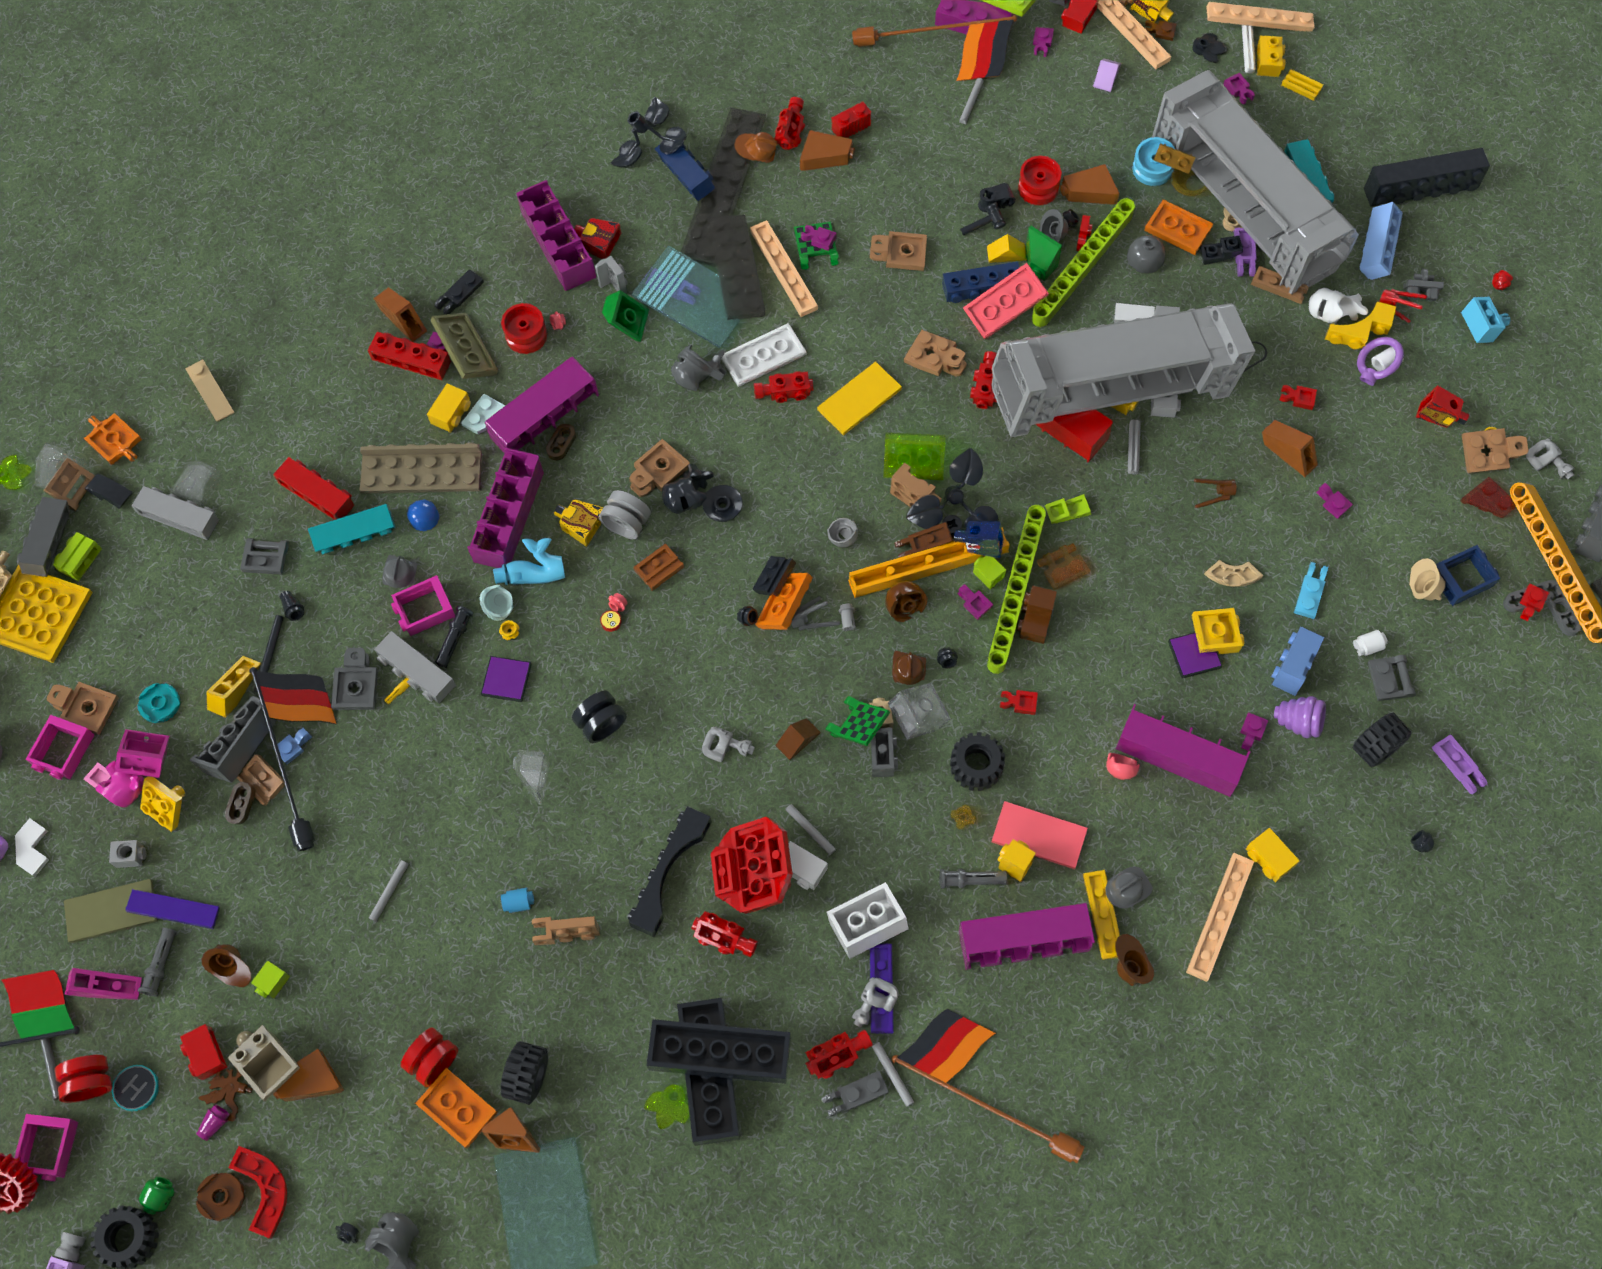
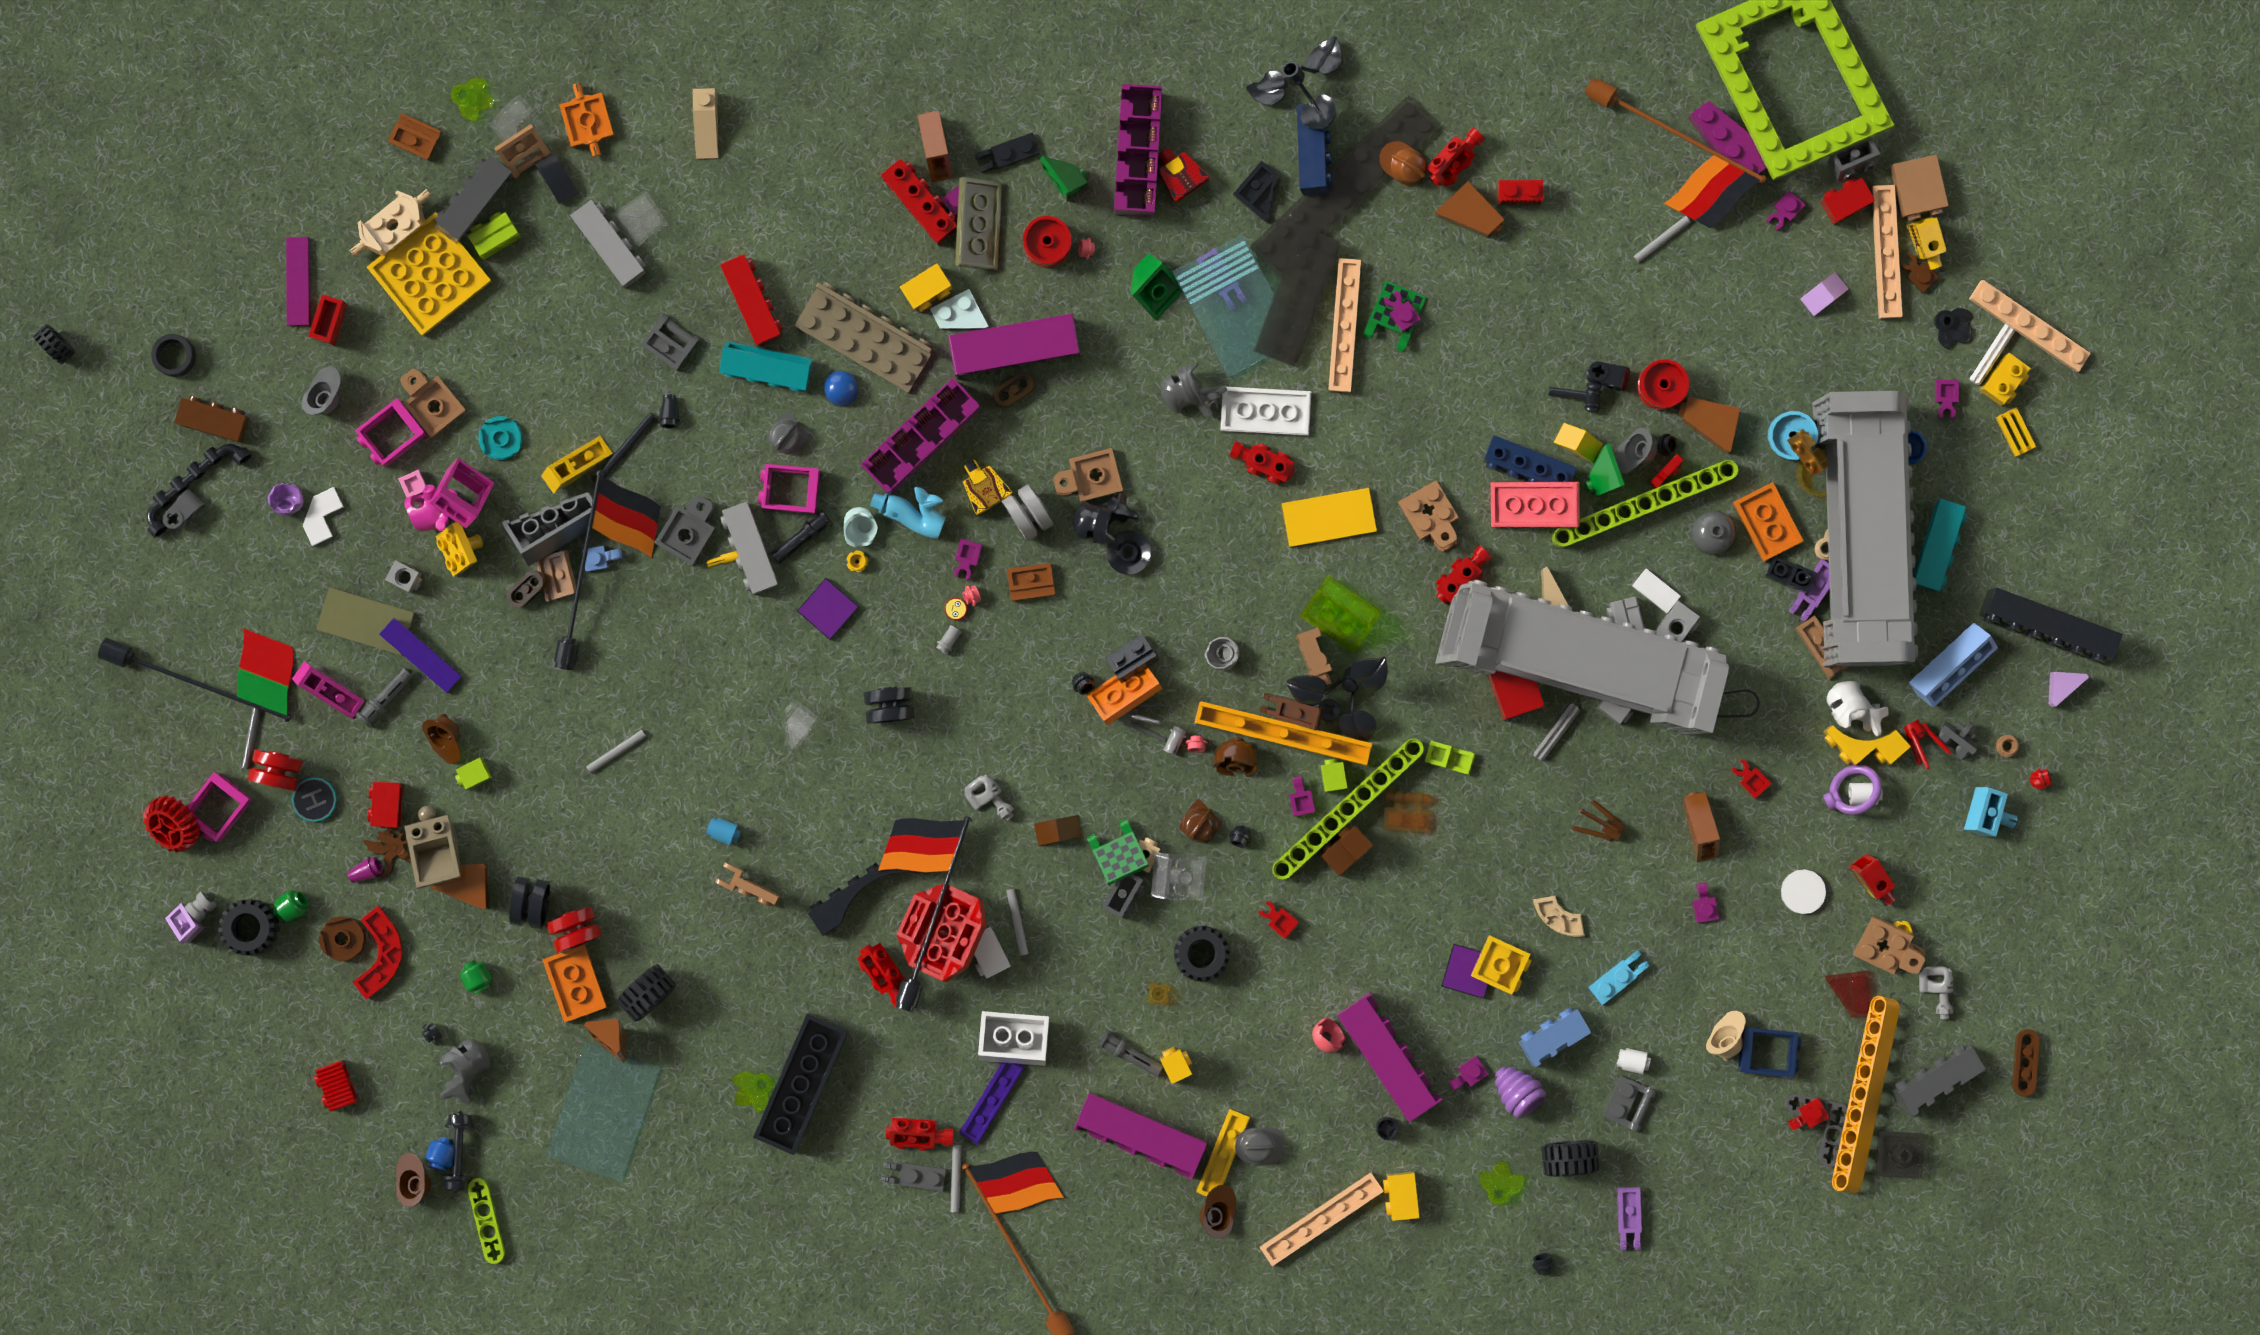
camera: 30 degrees right, 20 degrees up
(362, 1155) = (476, 977): none -> green head
(376, 1057) = (529, 902): none -> black wheel
(509, 281) = (1065, 176): none -> green slope
(596, 577) = (967, 554): none -> magenta plate
(610, 272) = (1171, 238): light grey bracket -> none
(618, 651) = (948, 640): none -> light grey pin
(662, 219) = (1258, 190): none -> black wing
(697, 810) = (923, 847): none -> flag
(719, 1051) = (816, 1080): black brick -> none
(866, 607) = (1196, 744): none -> coral plate
(876, 999) = (977, 1108): light grey piece -> none
(892, 249) = (1463, 373): medium nougat plate -> none
(982, 538) = (1347, 754): clear blue torso -> none
(1045, 835) = (1214, 1051): coral tile -> none
(1220, 805) = (1387, 1128): none -> black wheel
(1338, 797) = (1502, 1180): none -> clear neon green plate
(1398, 451) = (1803, 891): none -> white tile
(1462, 269) = (2014, 746): none -> medium nougat plate
(1465, 212) = (2062, 685): none -> lavender slope

